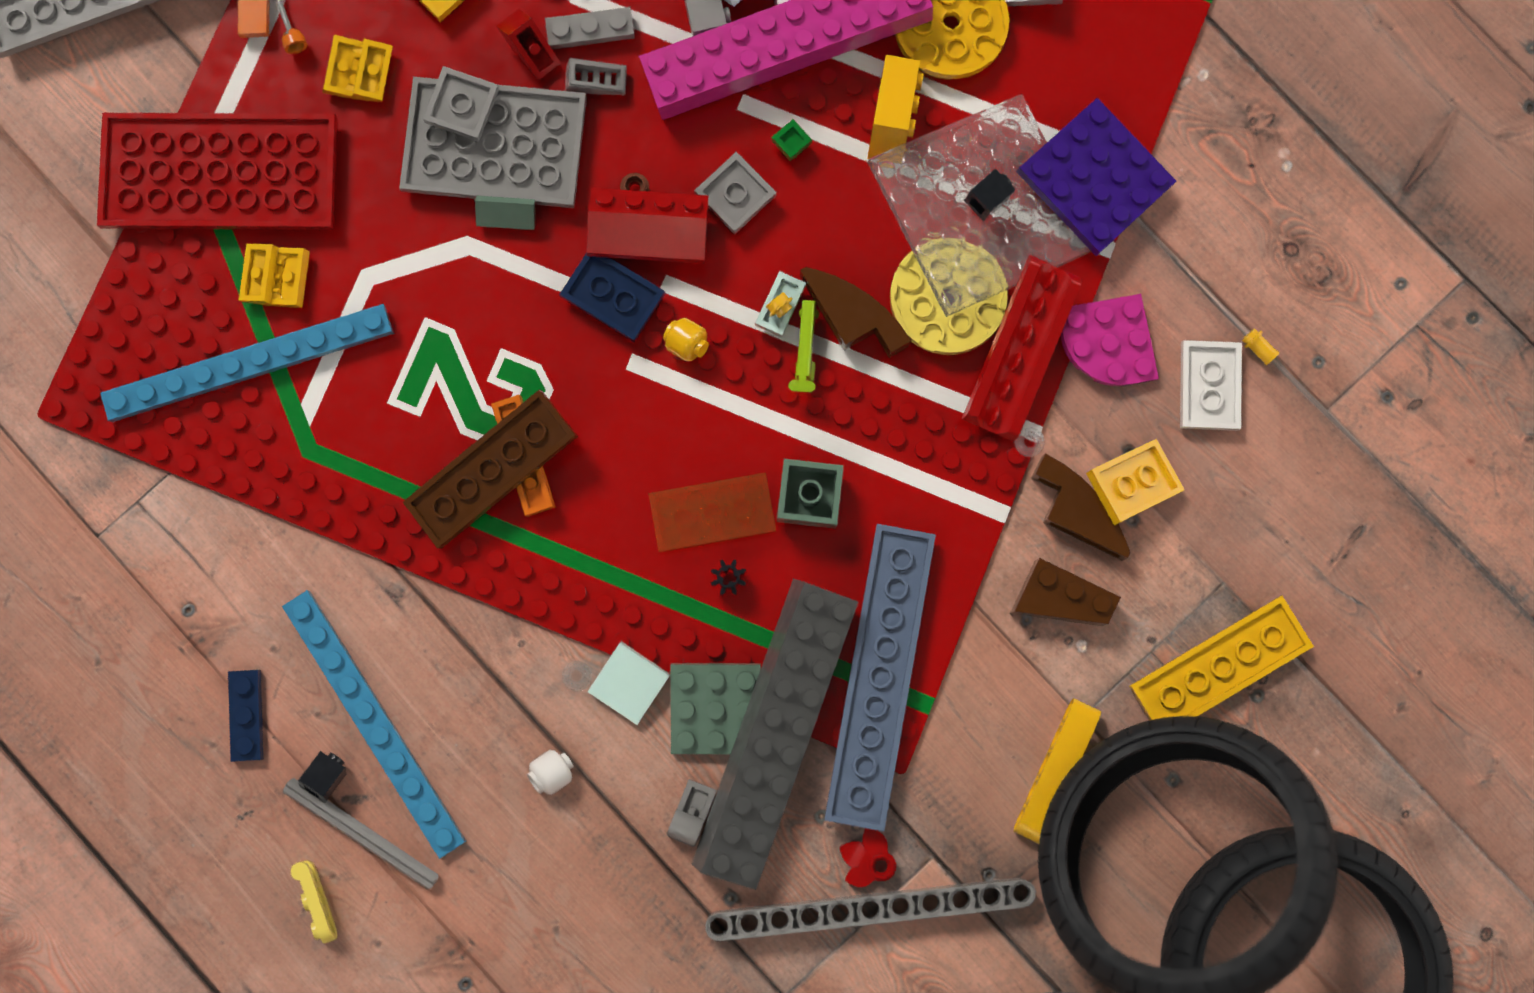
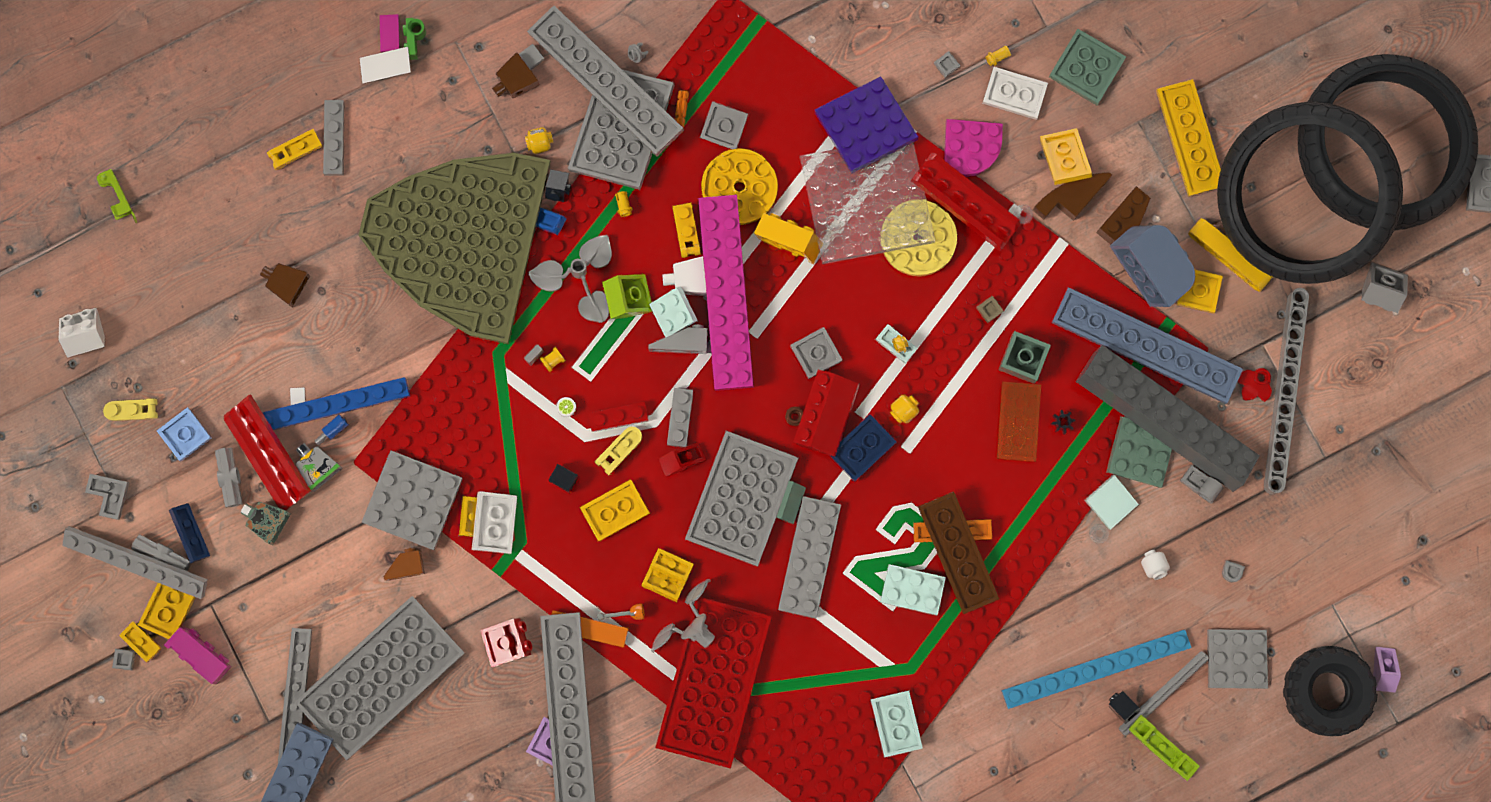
camera: 75 degrees left, 0 degrees up
(218, 446) = (896, 724): none -> light aqua plate
(245, 715) = (1071, 749): dark blue plate -> none
(246, 363) = (845, 693): dark azure plate -> none
(274, 275) = (792, 662): yellow slope -> none
(276, 127) = (696, 631): none -> light grey plant
(277, 853) = (1163, 748): none -> lime slope
(315, 901) = (1199, 731): light yellow plate -> none
(422, 421) = (912, 589): none -> light aqua plate
(433, 261) = (809, 557): none -> light grey plate
(440, 934) = (1237, 659): none -> light grey plate
(461, 103) = (714, 511): light grey plate -> none
(571, 894) = (1232, 572): none -> light grey tile
(596, 68) = (711, 438): light grey slope -> none
(791, 140) = (790, 308): green plate -> none
(805, 366) = (939, 339): lime piece -> none
(853, 313) = (915, 299): reddish brown slope -> none
(870, 427) = (989, 309): none -> dark tan plate
(989, 194) = (865, 193): black brick -> none
(989, 737) = (1203, 293): none -> yellow plate
(1008, 653) = (1155, 263): none -> sand blue brick
(1224, 276) = (946, 64): none -> light grey tile
(1284, 483) = (1087, 67): none -> sand green plate

